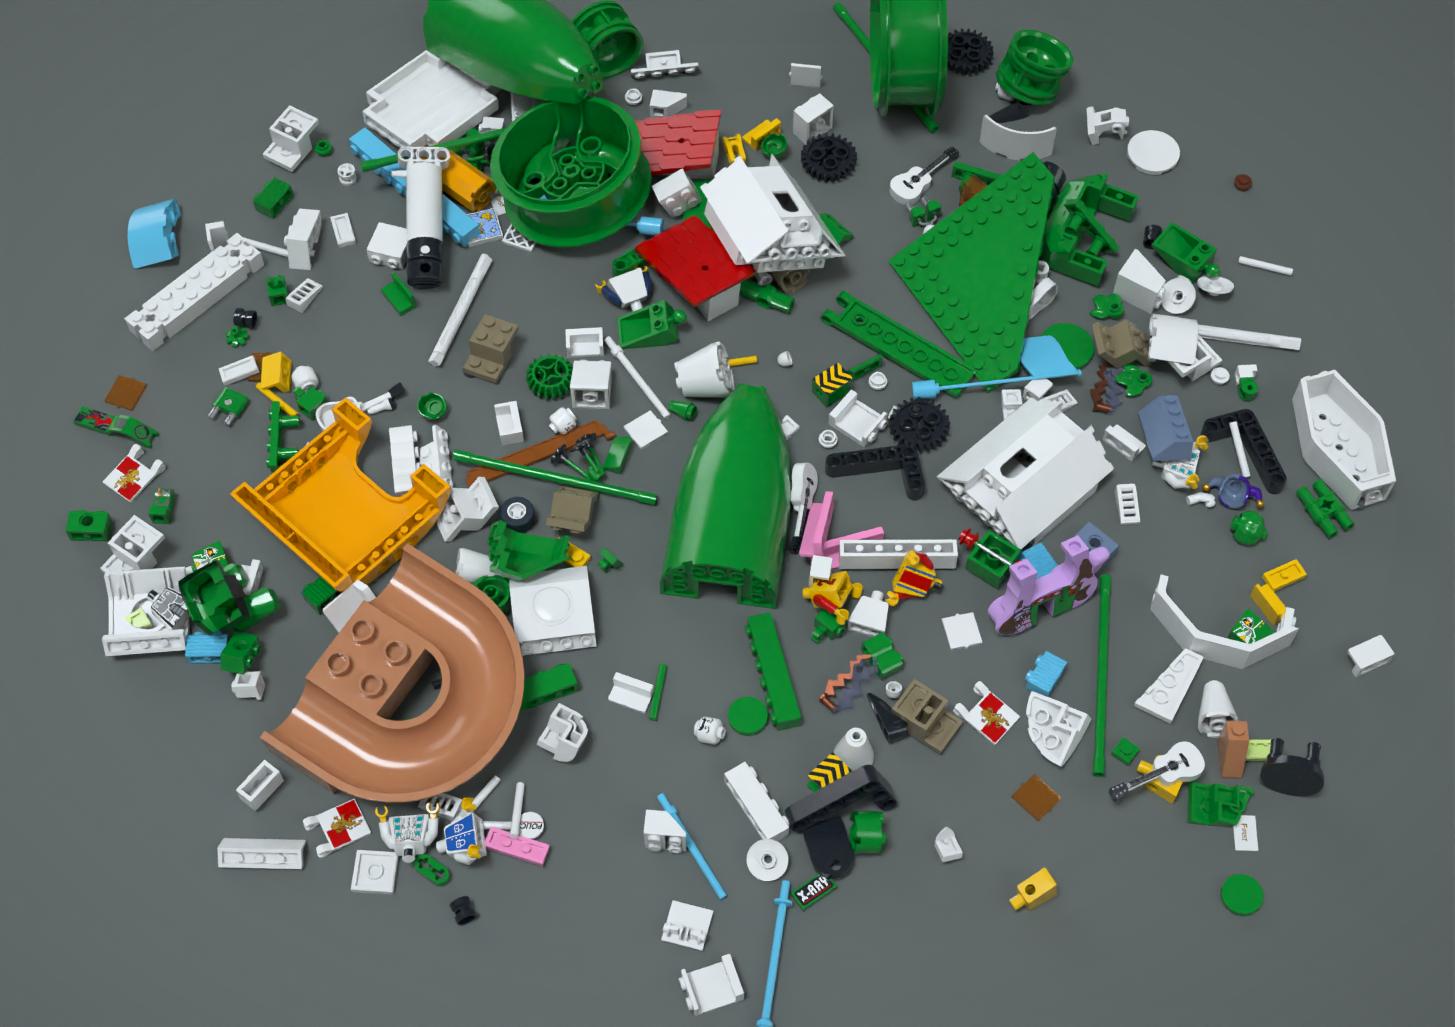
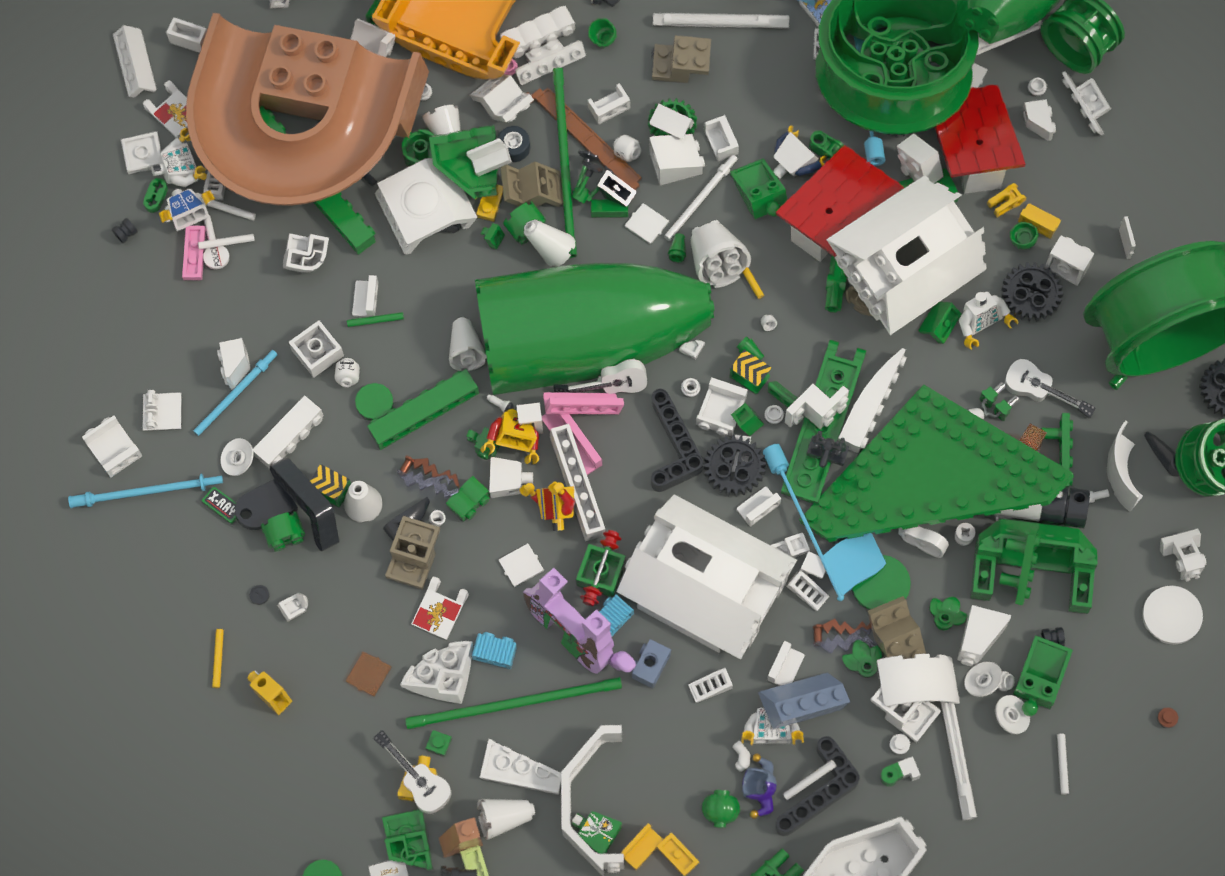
camera: 75 degrees right, 10 degrees up
(529, 534) = (489, 157): none -> white panel
(558, 368) = (671, 121): none -> white panel
(606, 438) = (615, 189): none -> slope
(609, 524) = (520, 218): none -> green brick
(645, 505) = (549, 242): none -> white cone
(675, 750) = (316, 349): none -> white brick
(719, 612) = (465, 346): none -> white cone
(793, 599) = (504, 405): none -> white piece
(804, 381) = (750, 346): none -> green cone
(839, 199) = (981, 313): none -> white torso
(877, 400) = (747, 419): none -> green panel
(891, 335) = (817, 407): none -> white bracket
(893, 303) = (869, 404): none -> white slope
(922, 880) = (259, 594): none -> black piece
(932, 343) = (827, 450): none -> black piece
(964, 418) = (758, 506): none -> white panel
(981, 937) = (217, 658): none -> yellow bar

